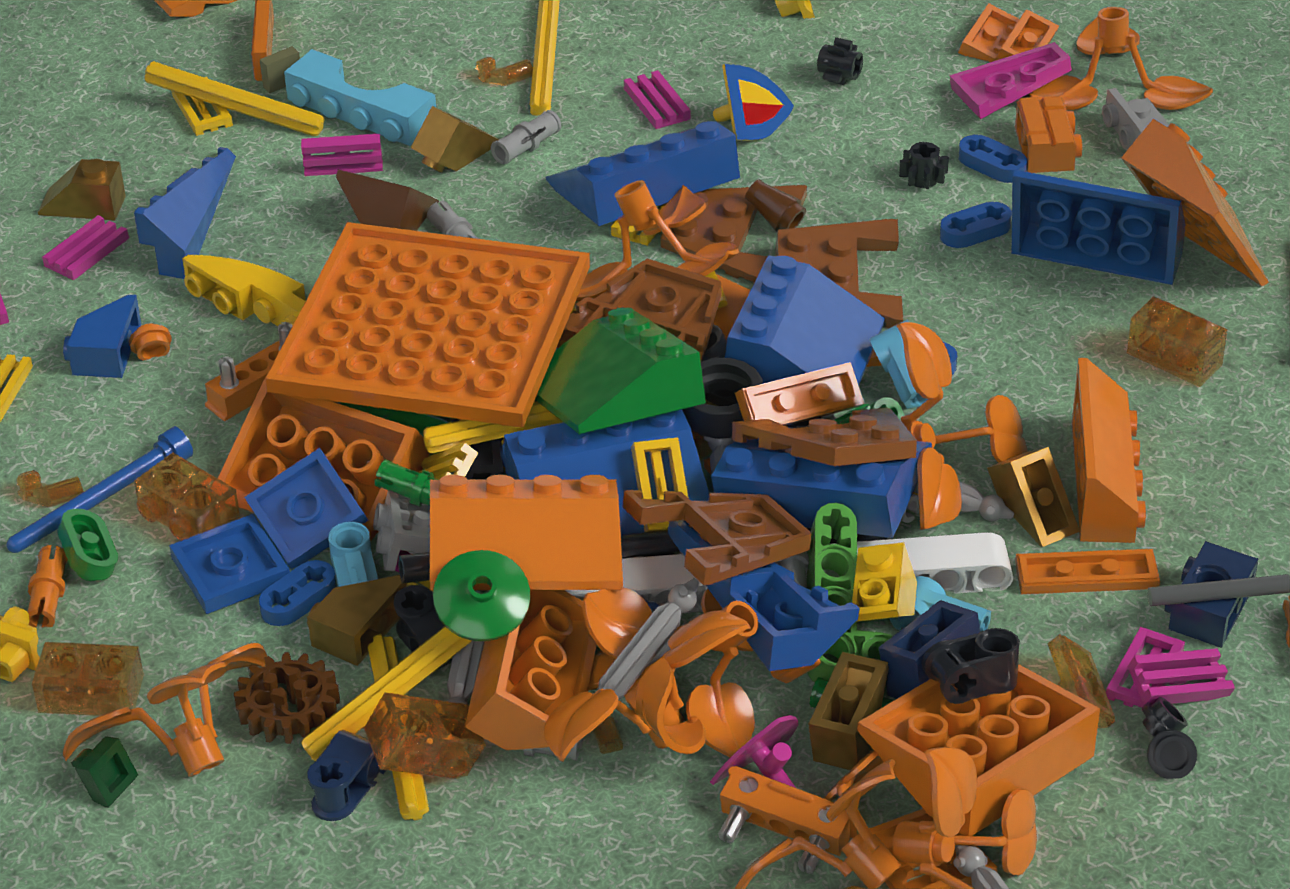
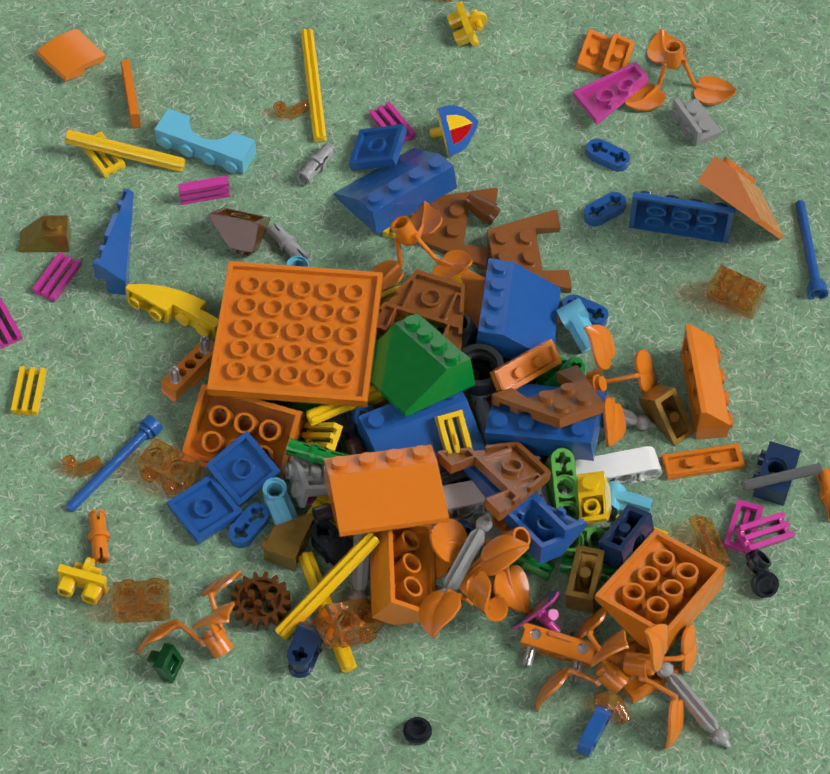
camera: 10 degrees left, 15 degrees up
(87, 544) = (118, 509): green plate -> none
(101, 339) = (88, 351): blue slope -> none
(150, 341) = (117, 348): orange plate -> none
(274, 66) = (148, 122): olive tile -> none
(450, 141) = (271, 173): pearl gold slope -> none
(475, 614) = (360, 547): green dish -> none
(625, 120) = (377, 147): none -> blue plate
(761, 686) = (529, 564): none -> green axle
(840, 61) = (503, 86): black gear -> none
(923, 165) = (567, 167): black gear -> none
(980, 664) = (654, 549): black piece -> none
(1047, 134) = (639, 135): orange brick -> none

